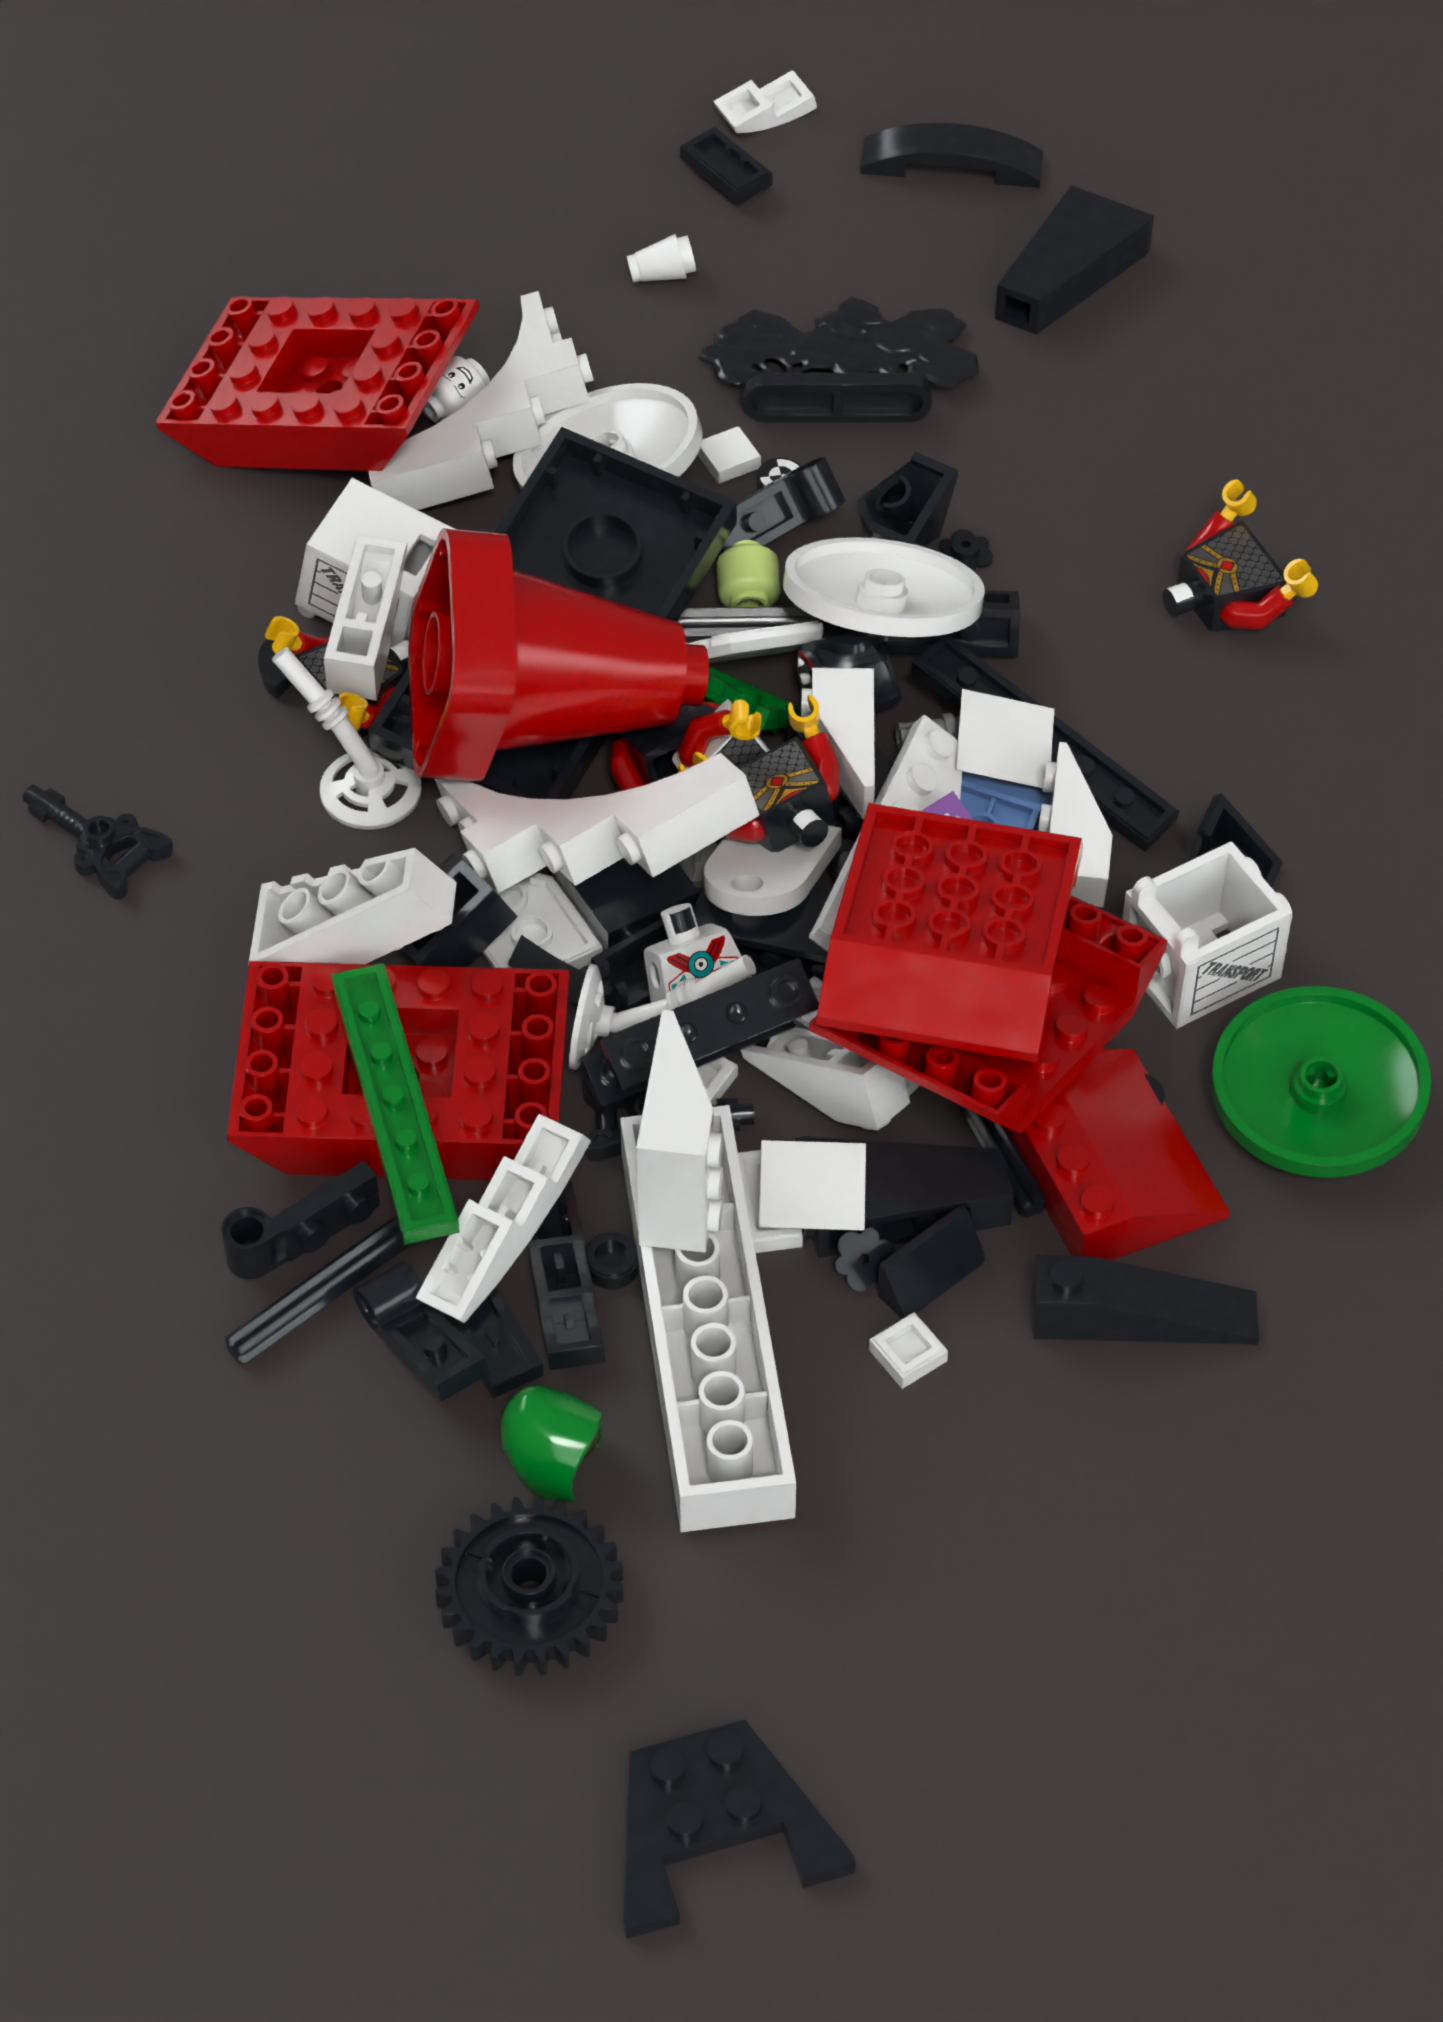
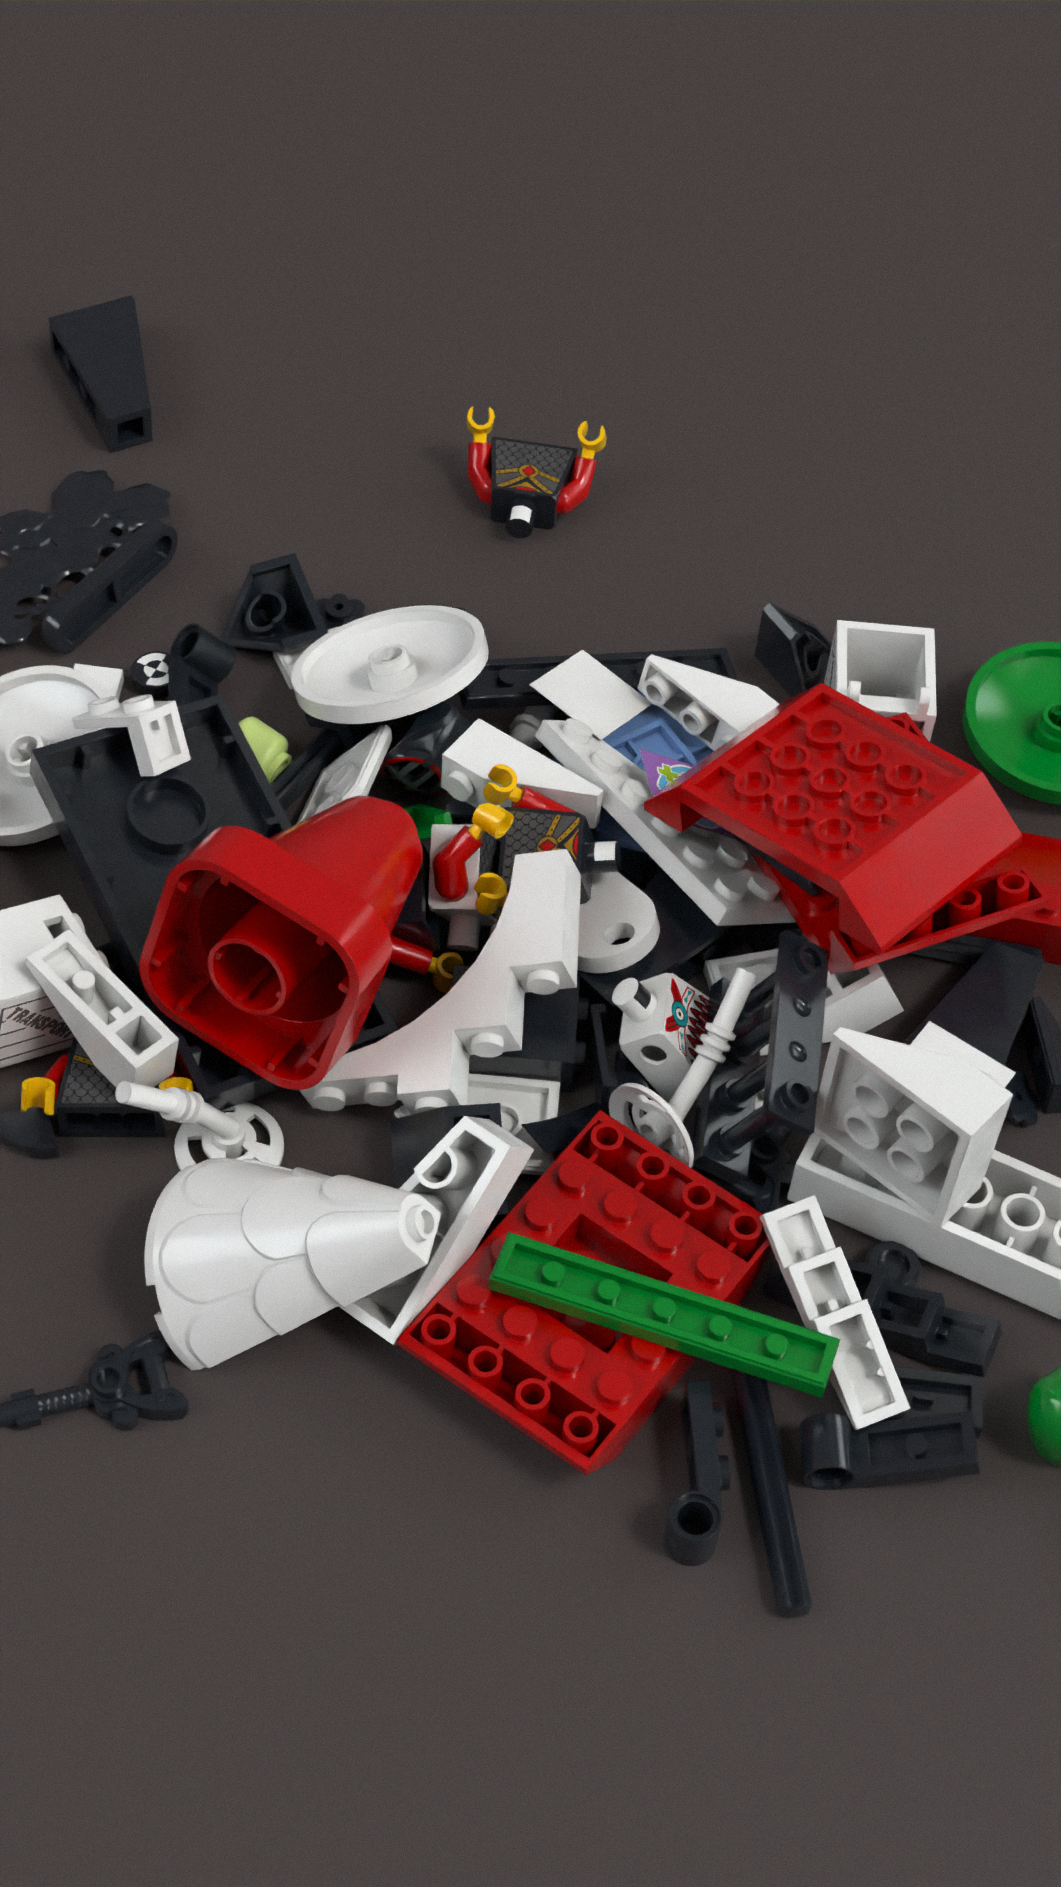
camera: 60 degrees left, 0 degrees up
(254, 828) = (269, 1247): none -> white cone
(647, 479) = (152, 727): none -> white bracket

